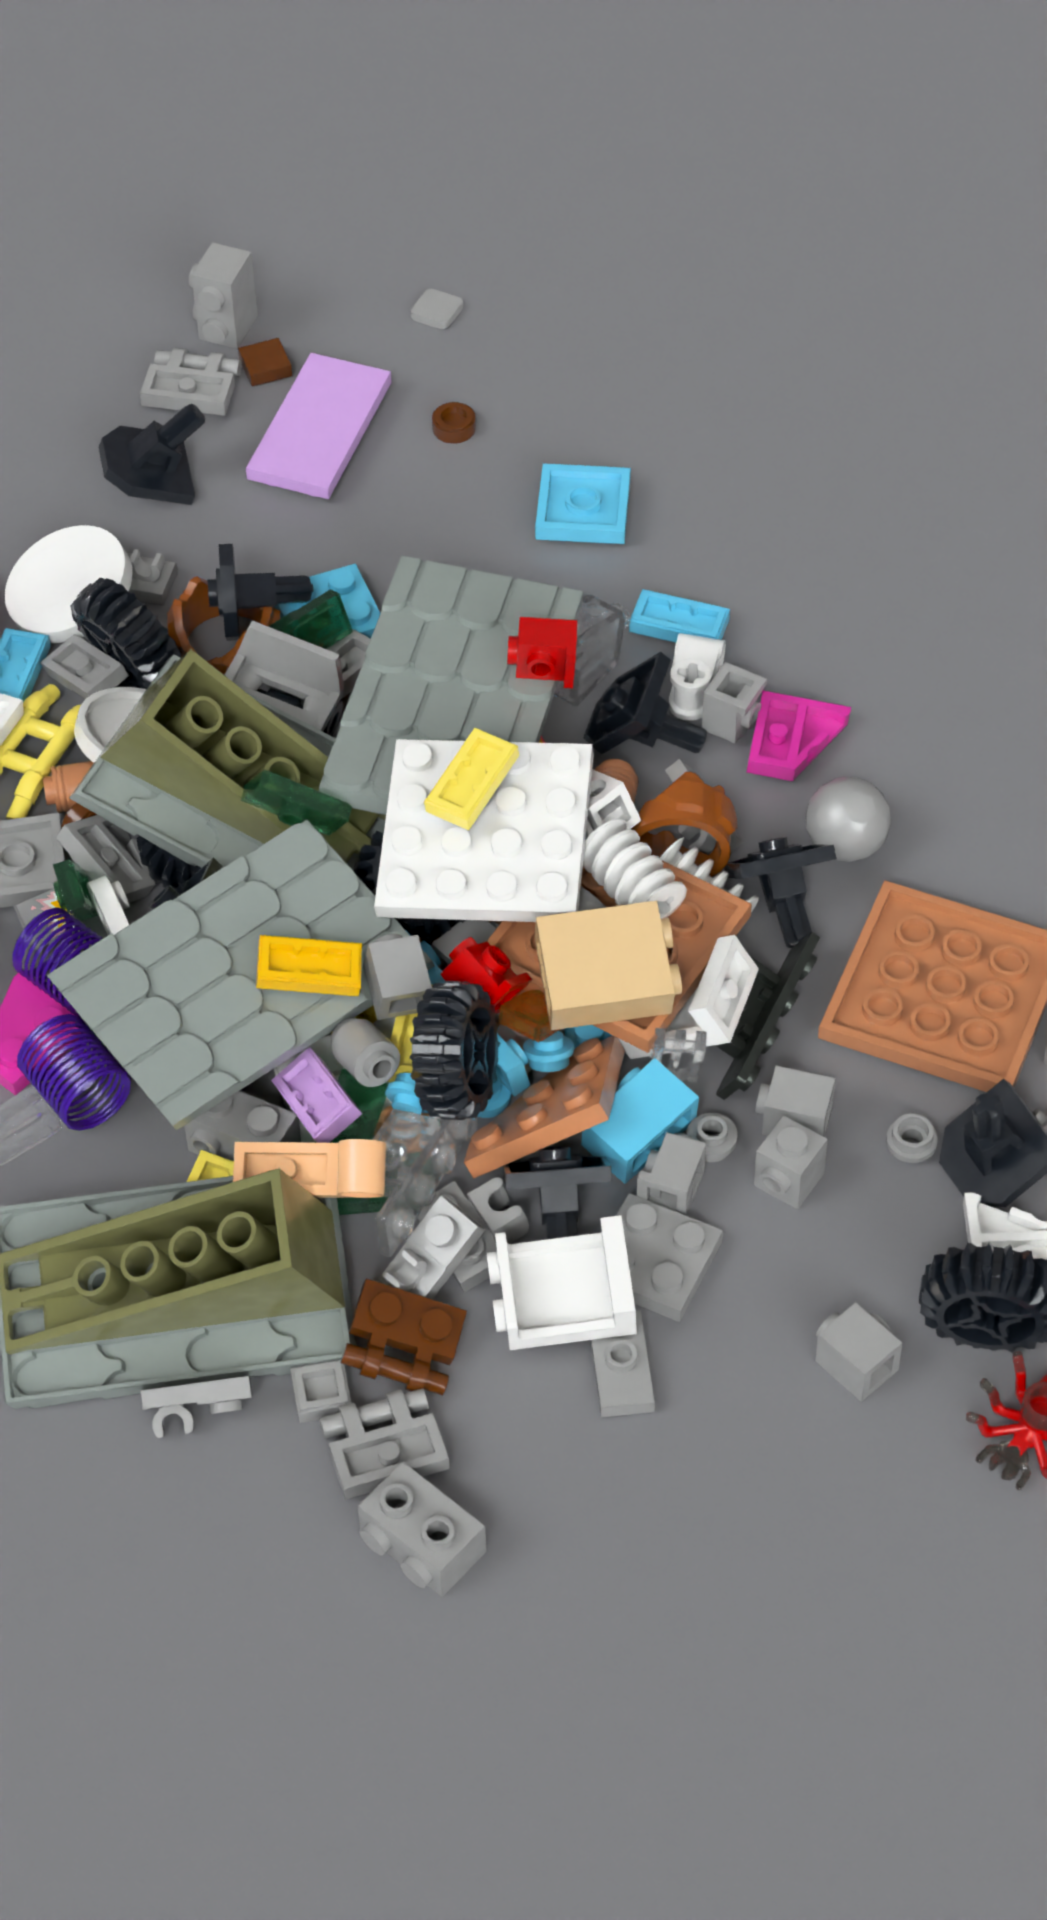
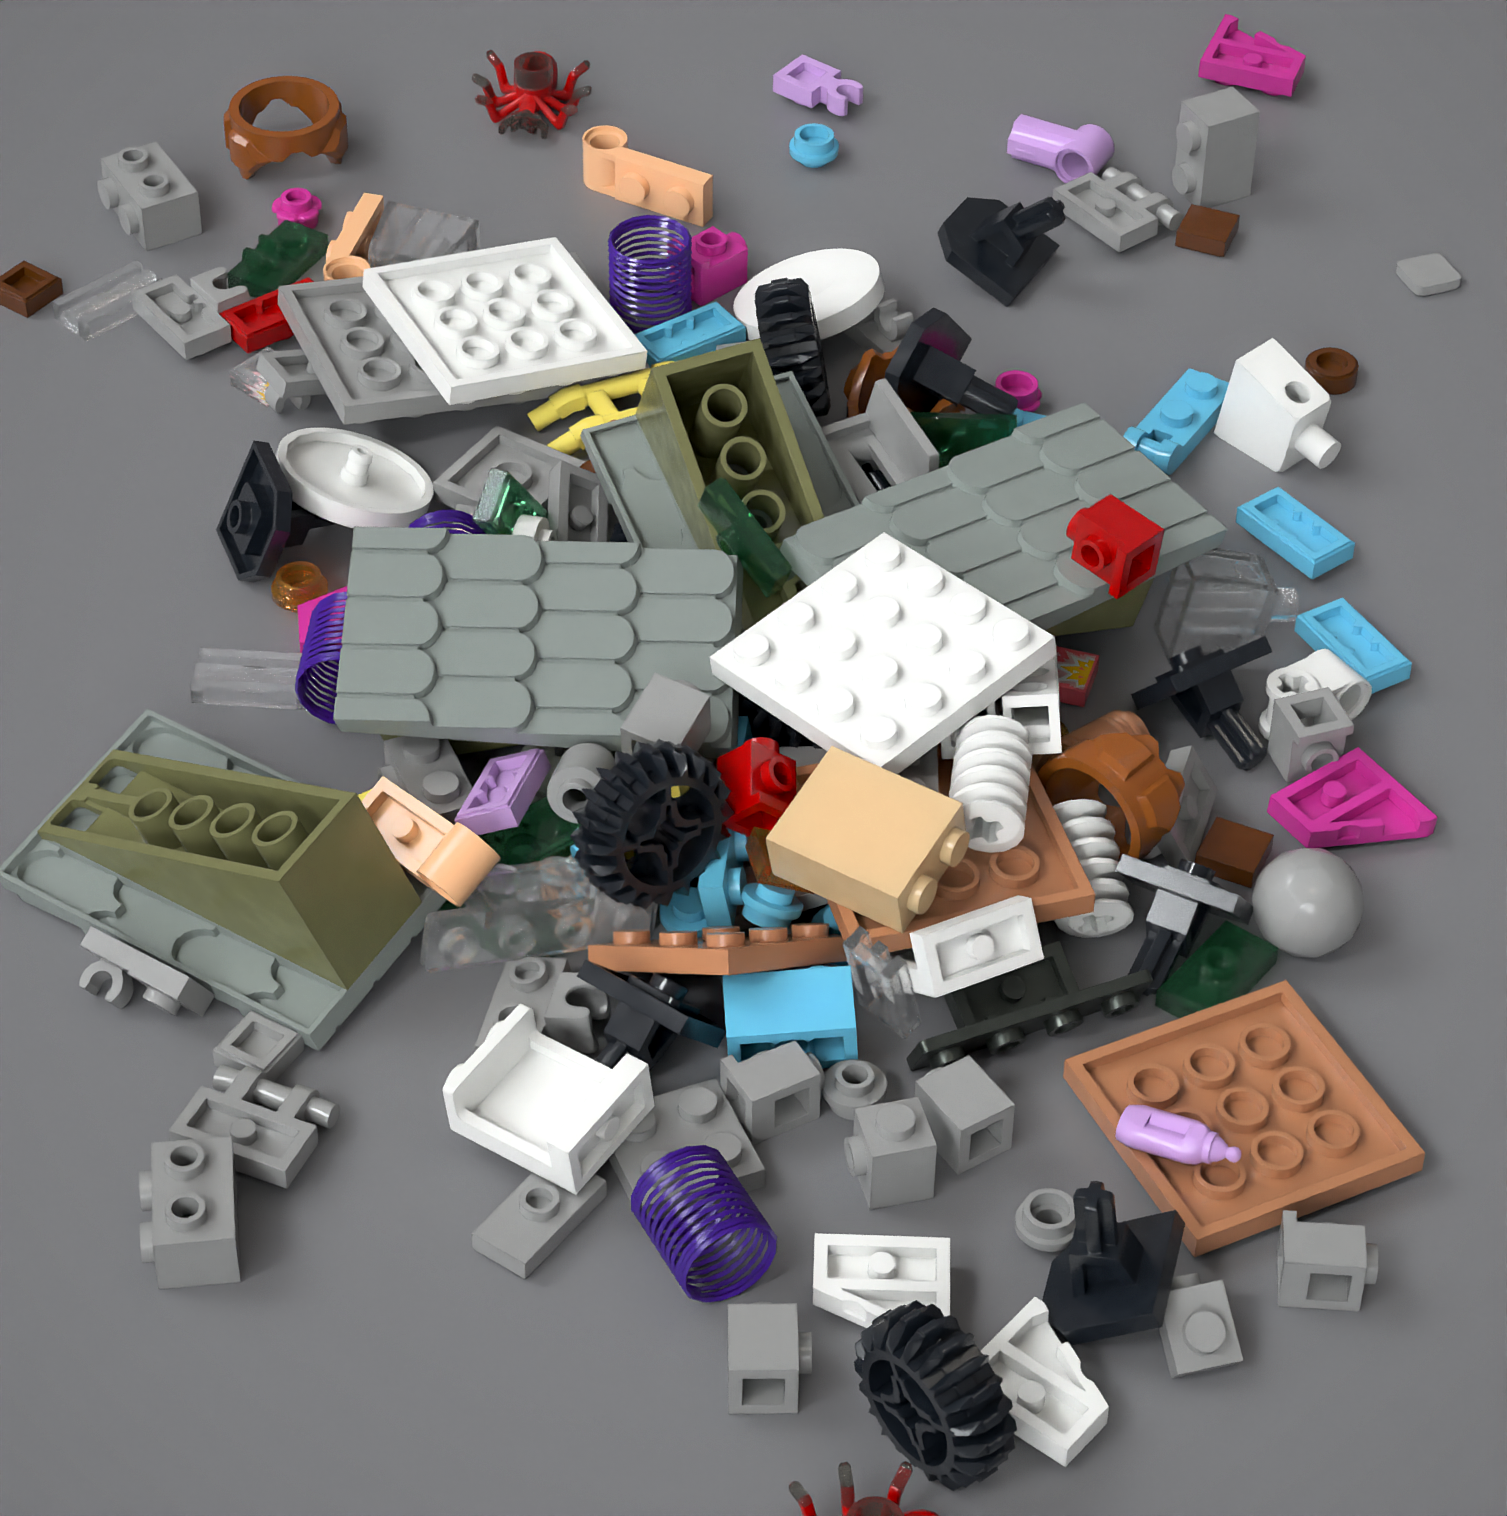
camera: 40 degrees right, 10 degrees down
(118, 354) = (1060, 148): none -> lavender piece
(156, 206) = (1251, 61): none -> dark pink wing
(279, 562) = (1023, 387): none -> dark pink plate
(309, 965) = (590, 664): yellow plate -> none
(319, 426) = (1192, 302): lavender tile -> none
(399, 519) = (1179, 420): none -> medium azure plate
(408, 1324) = (383, 1038): reddish brown plate -> none
(433, 1250) = (468, 1000): light grey plate -> none
(471, 778) = (897, 591): light yellow plate -> none
(472, 478) = (1276, 411): none -> white torso
(561, 560) = (1295, 532): none -> medium azure plate
(583, 503) = (1374, 499): medium azure plate -> none
(758, 813) = (1235, 851): none -> reddish brown tile
(776, 1303) = (710, 1233): none -> dark purple piece
(833, 905) = (1217, 971): none -> clear green plate
(870, 1250) = (876, 1273): none -> white wing
(938, 1031) = (1172, 1136): none -> lavender piece

